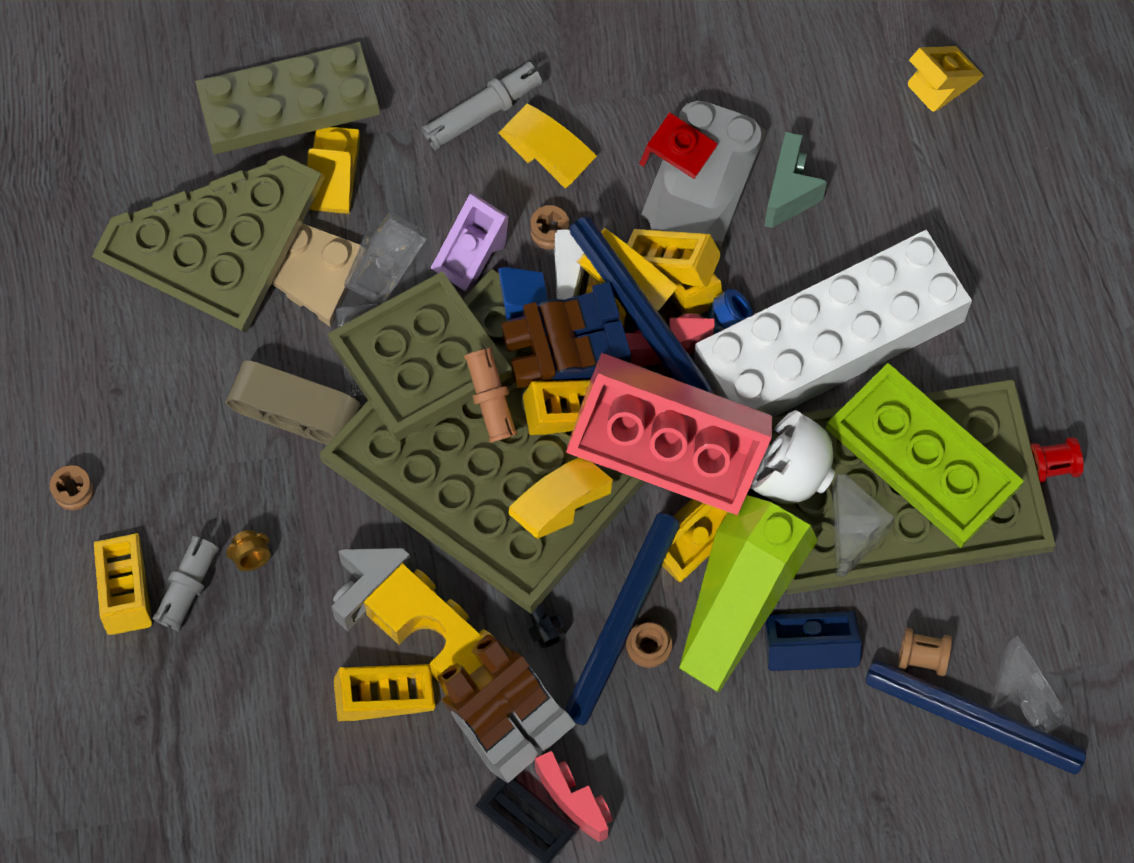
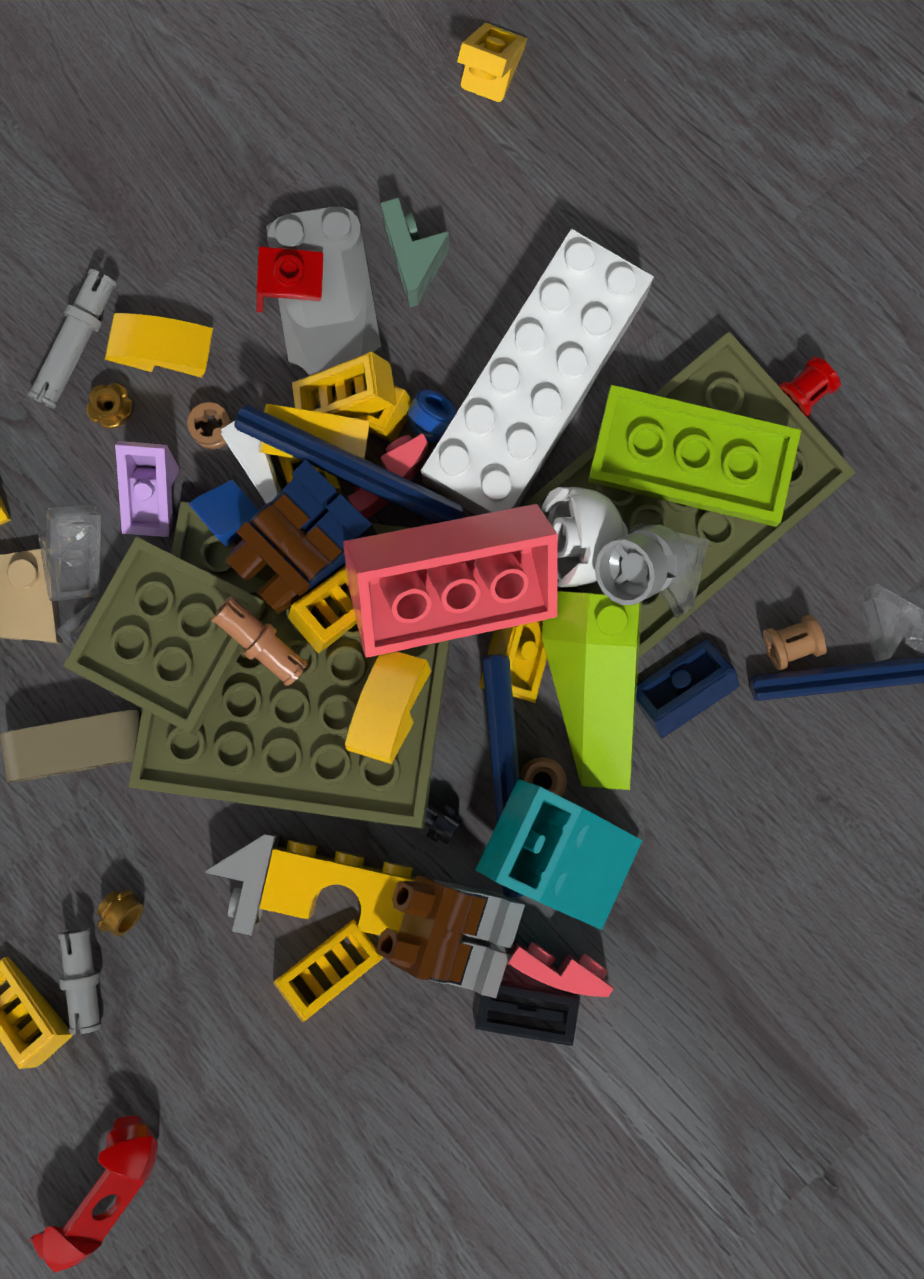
camera: 30 degrees left, 15 degrees up
(133, 745) = (128, 1164): none -> red piece
(480, 180) = (113, 417): none -> pearl gold plate
(630, 701) = (558, 854): none -> teal slope
(825, 498) = (640, 564): none -> light grey wheel

